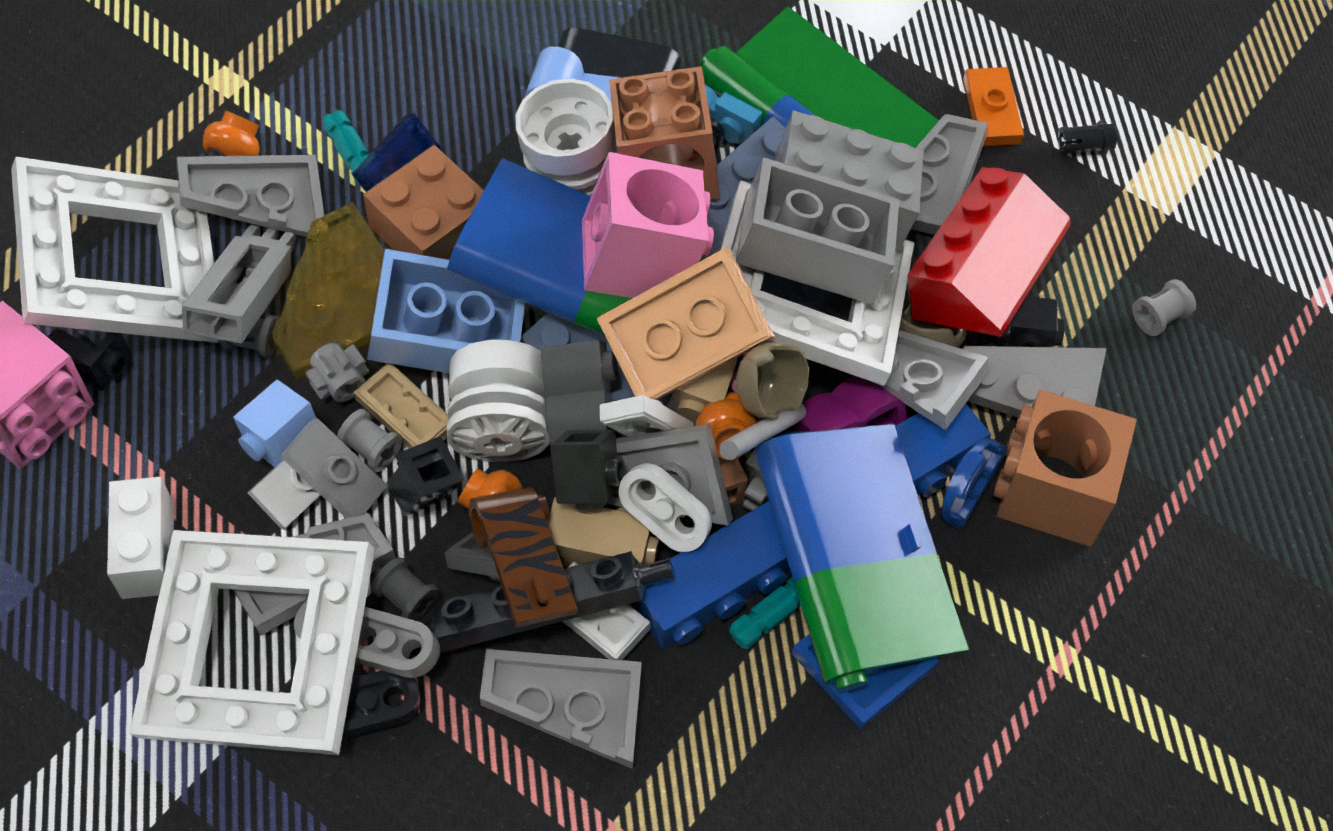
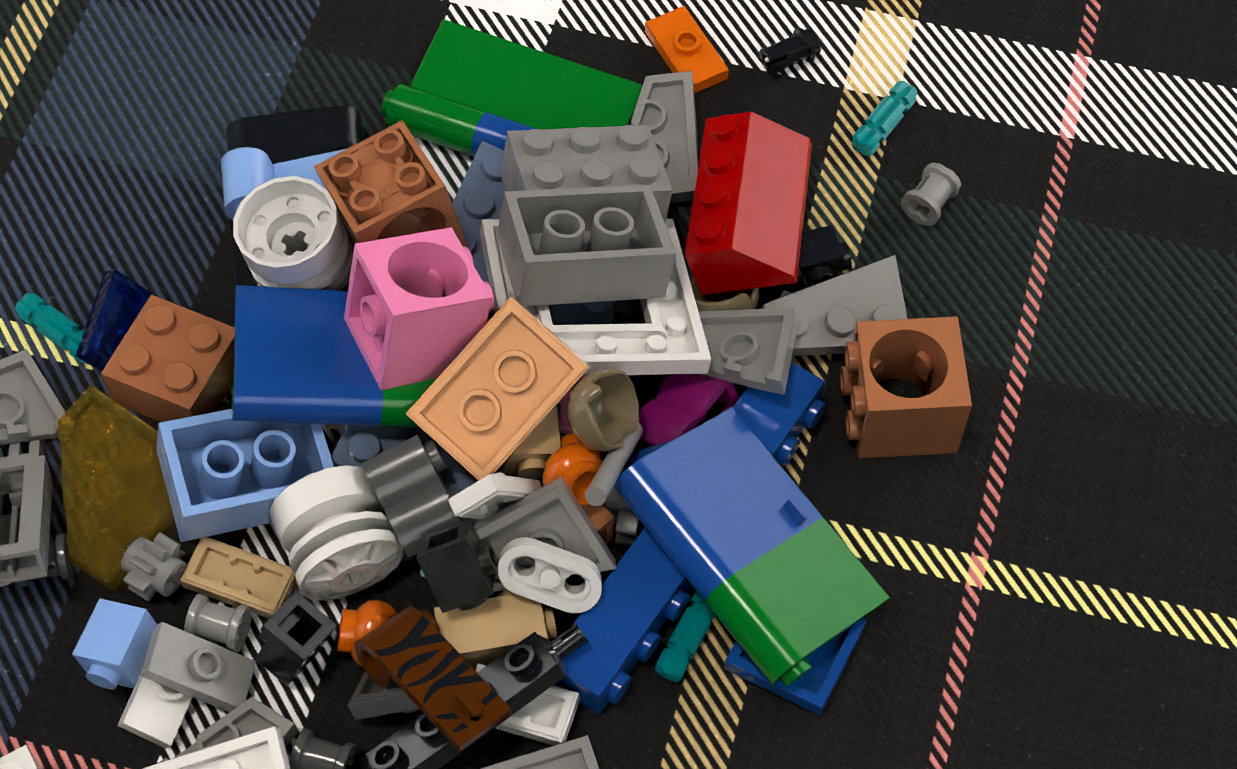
camera: 20 degrees left, 0 degrees up
(734, 115) = (446, 154): dark azure plate -> none
(971, 481) = (824, 434): blue tile -> none
(1149, 226) = (884, 118): none -> teal axle

